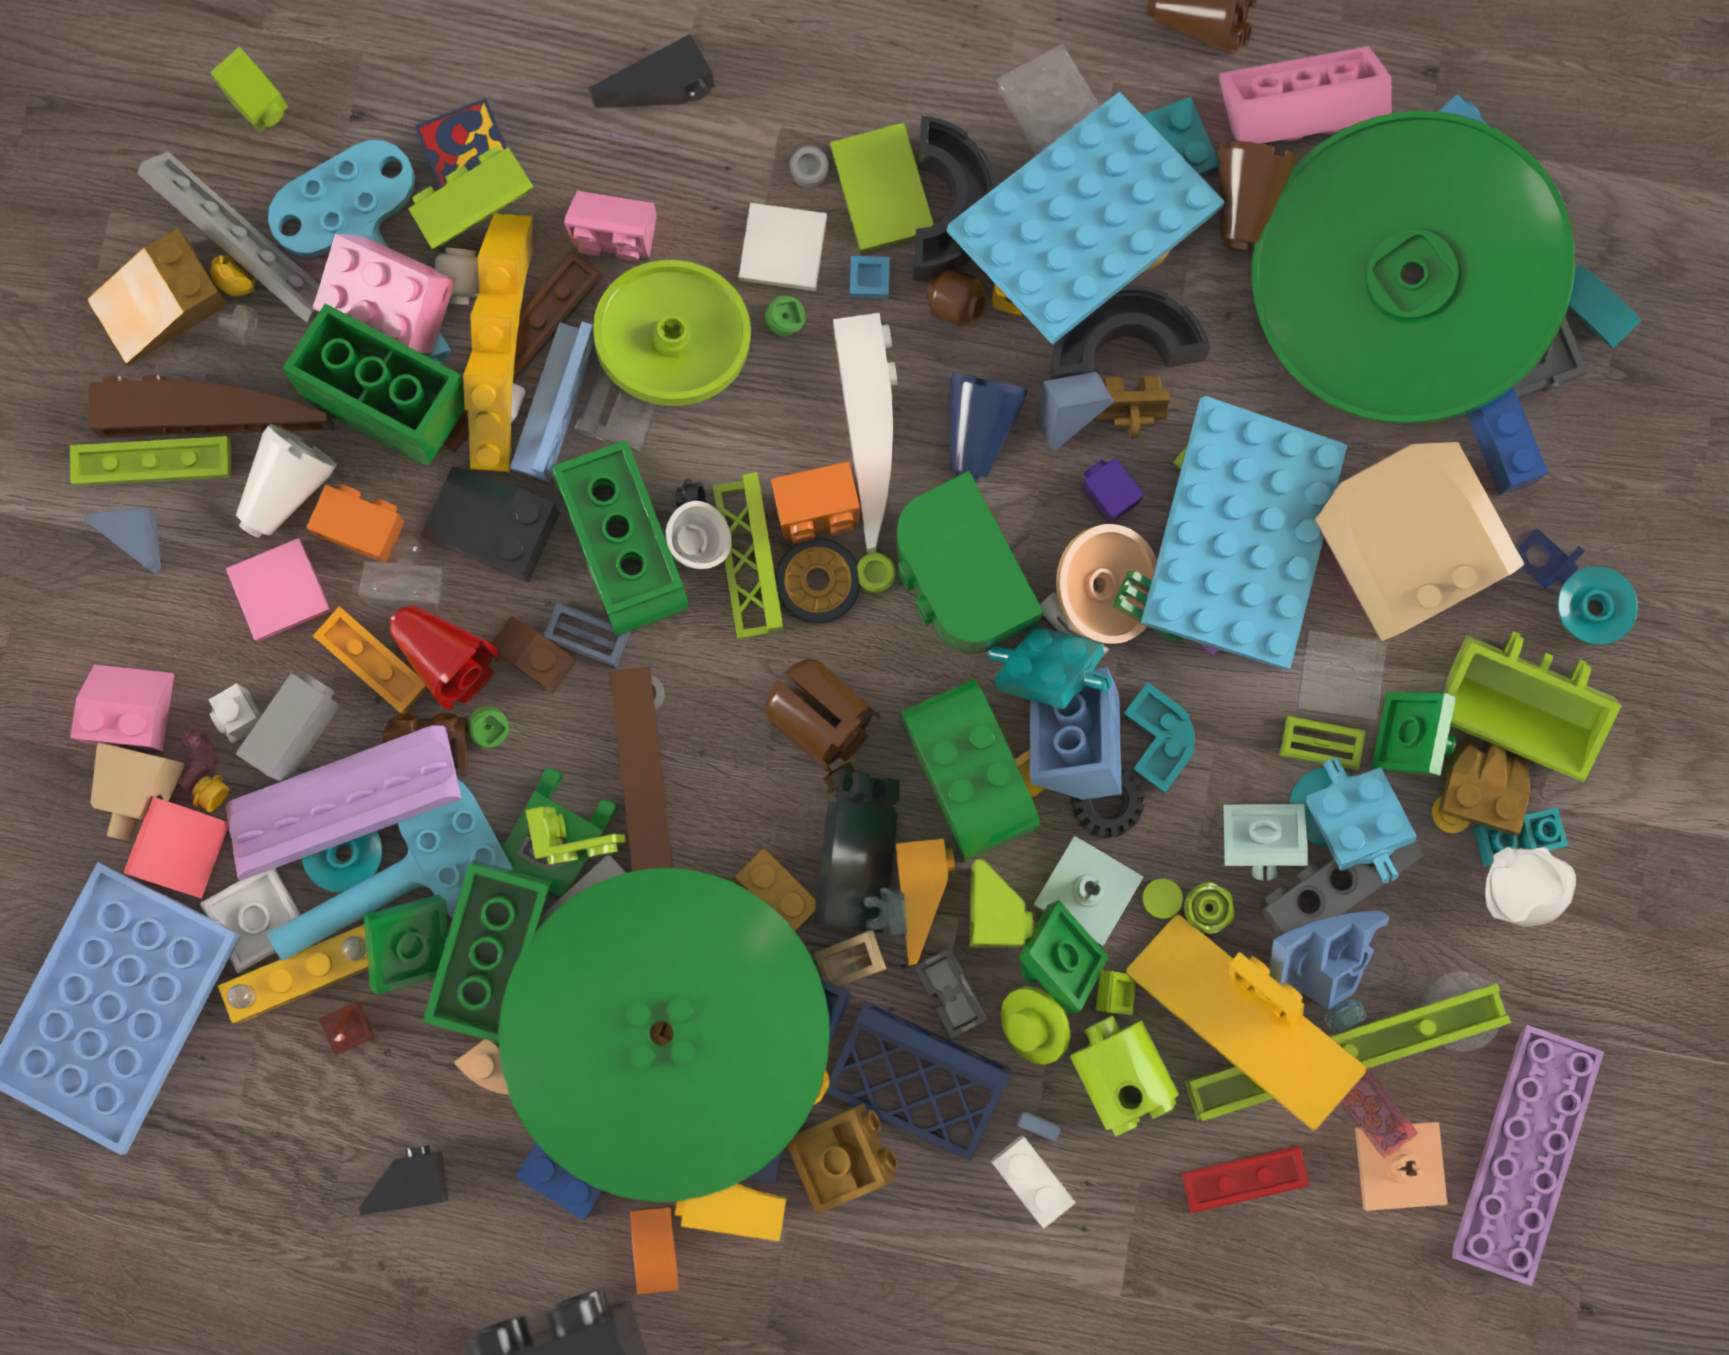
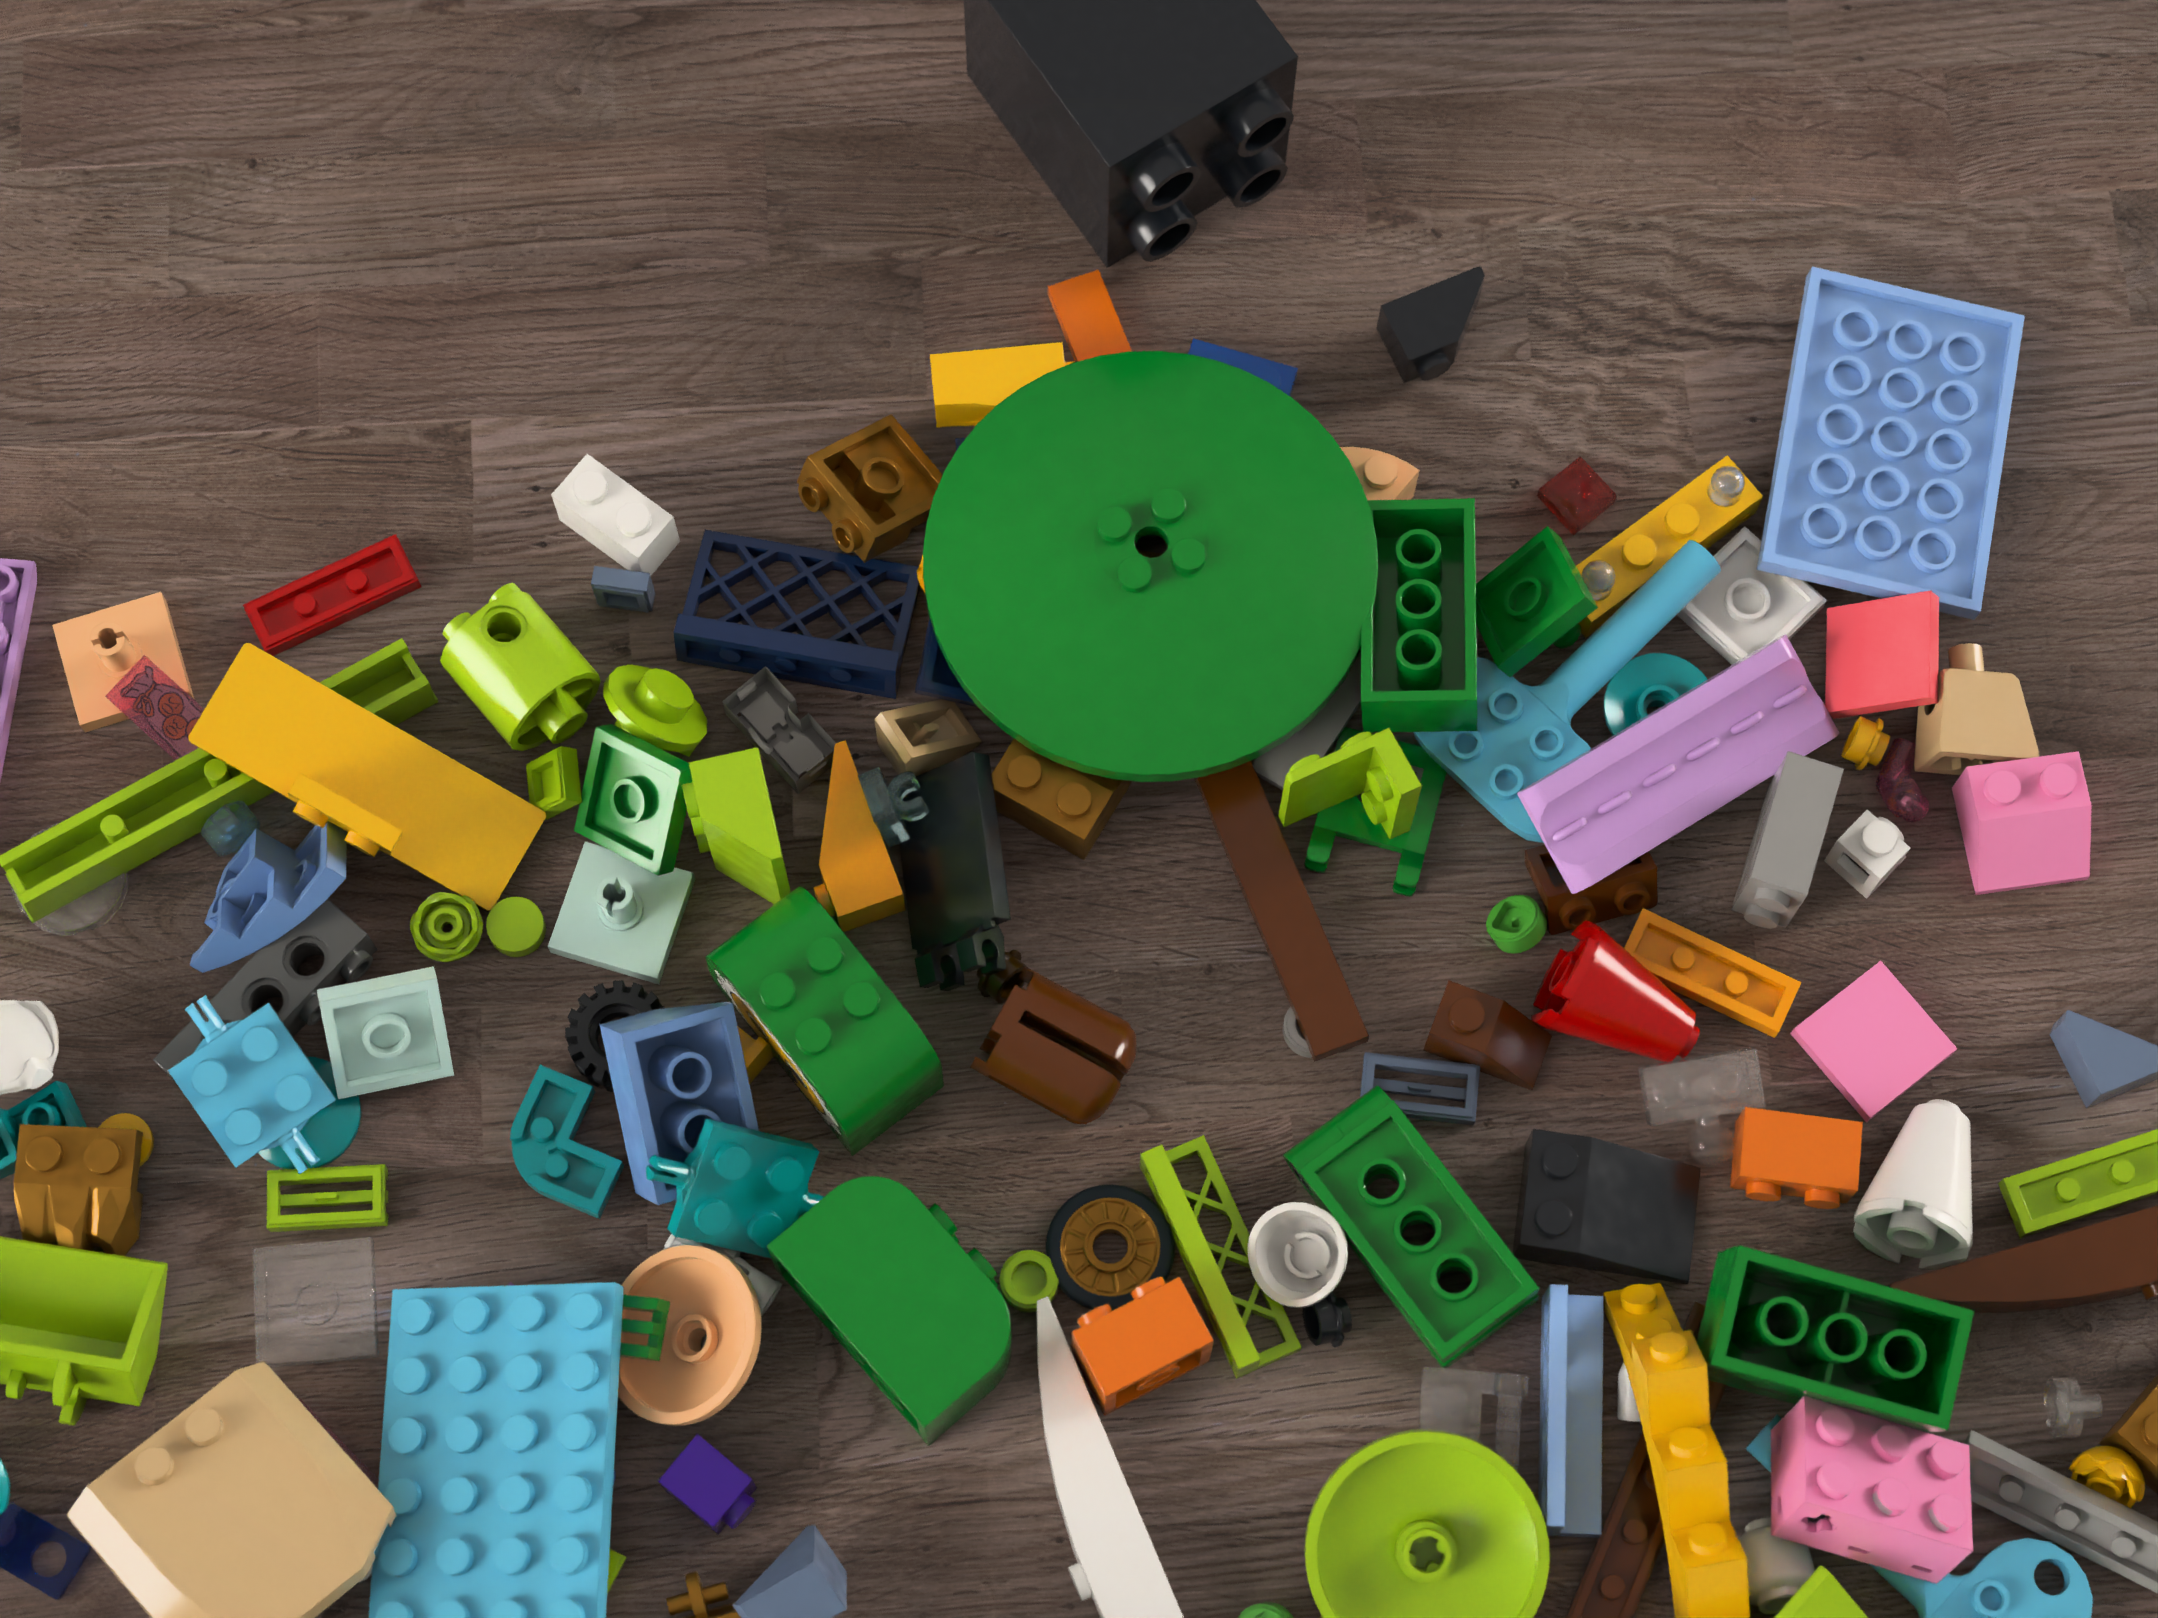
camera: 165 degrees right, 10 degrees down
(980, 422) = (928, 1538): dark blue cone -> none
(1414, 733) = (194, 1229): green tile -> none

